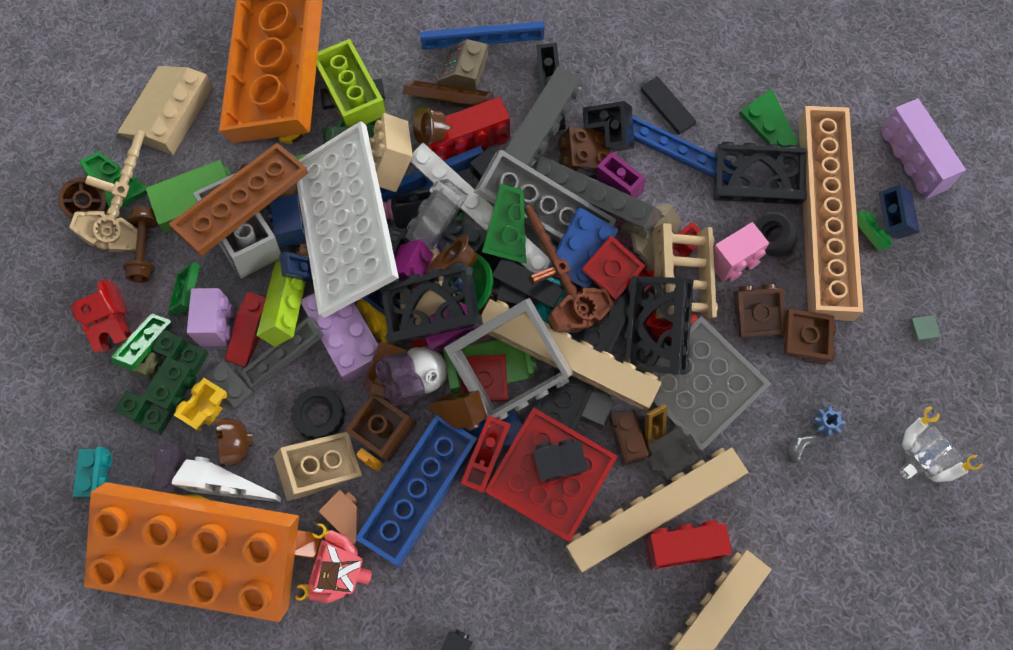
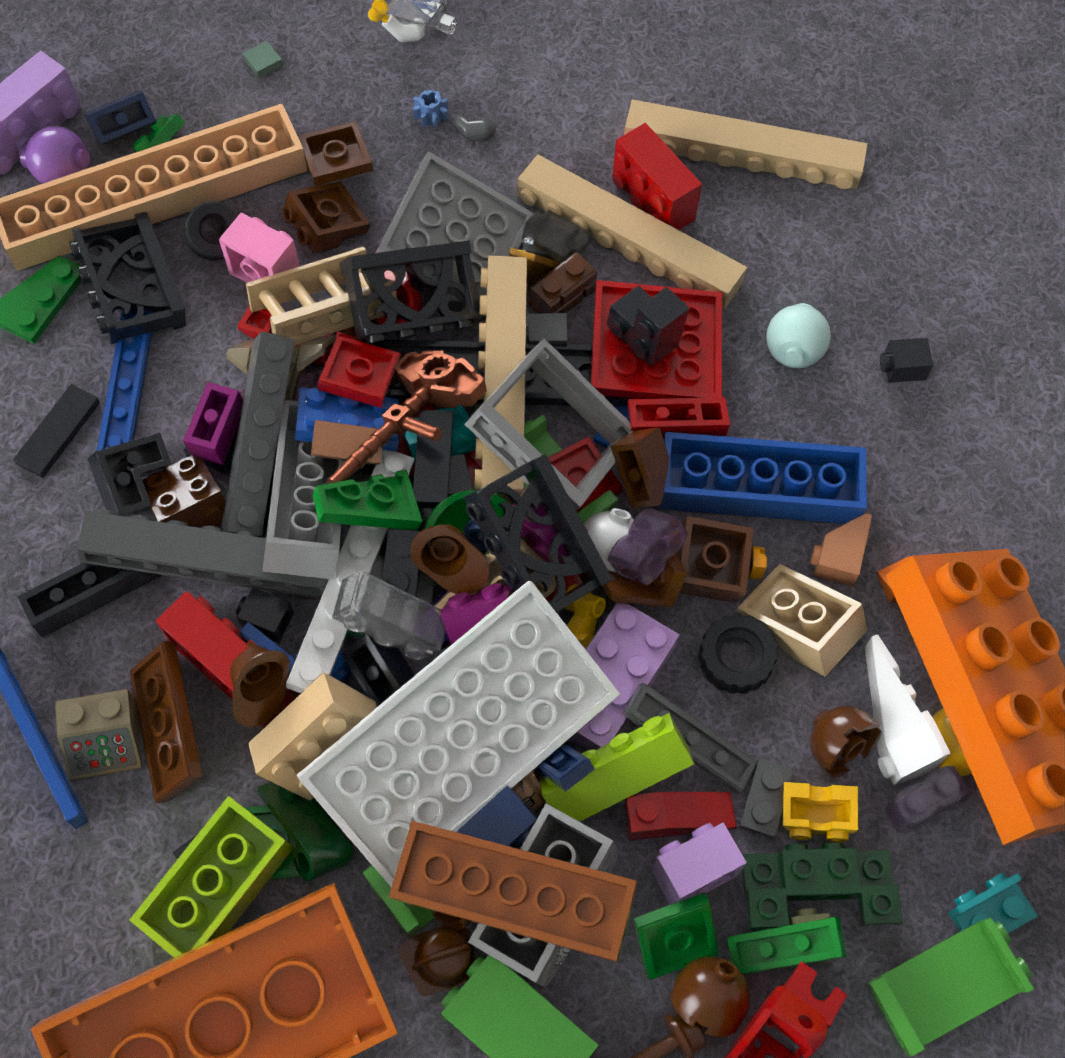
camera: 120 degrees left, 5 degrees down
(72, 418) = (950, 984): none -> bright green panel
(145, 281) = (712, 995): none -> reddish brown cylinder
(335, 569) = (908, 523): torso -> none
(511, 581) = (798, 336): none -> light aqua brick
(561, 230) = (340, 440): none -> nougat tile
(879, 164) = (54, 154): none -> medium lavender brick

